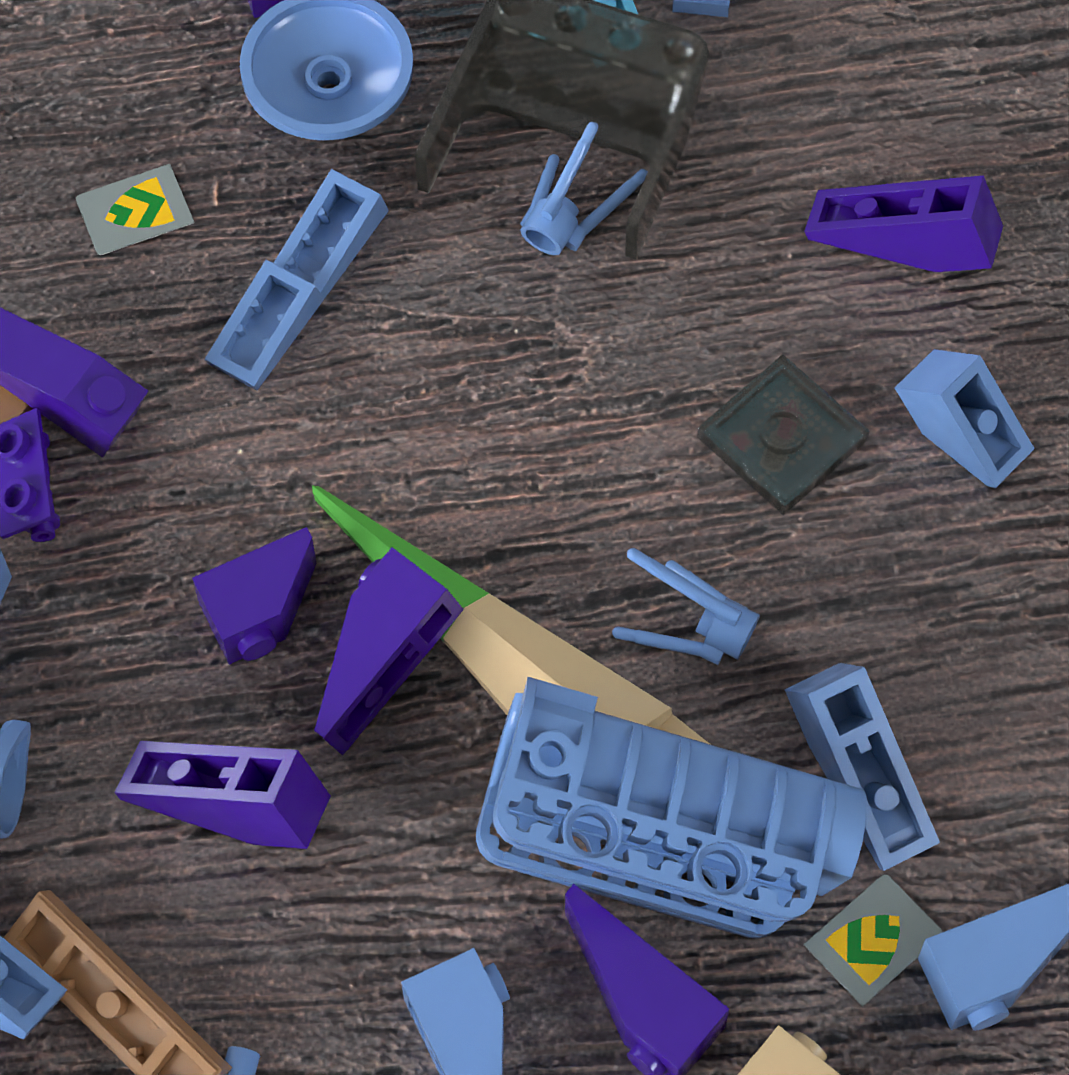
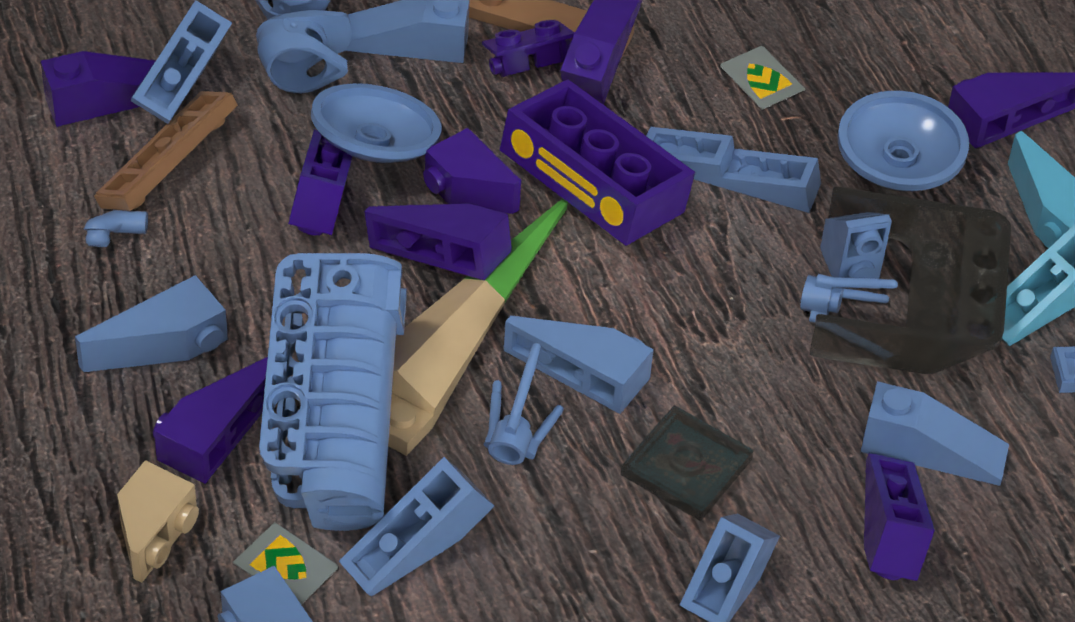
camera: 75 degrees right, 15 degrees down
(148, 698) = (375, 122): none -> medium blue dish
(287, 428) = (596, 161): none -> dark purple brick
(490, 159) = (855, 244): none -> medium blue slope
(622, 499) = (584, 357): none -> medium blue slope
(791, 163) = (931, 435): none -> medium blue slope

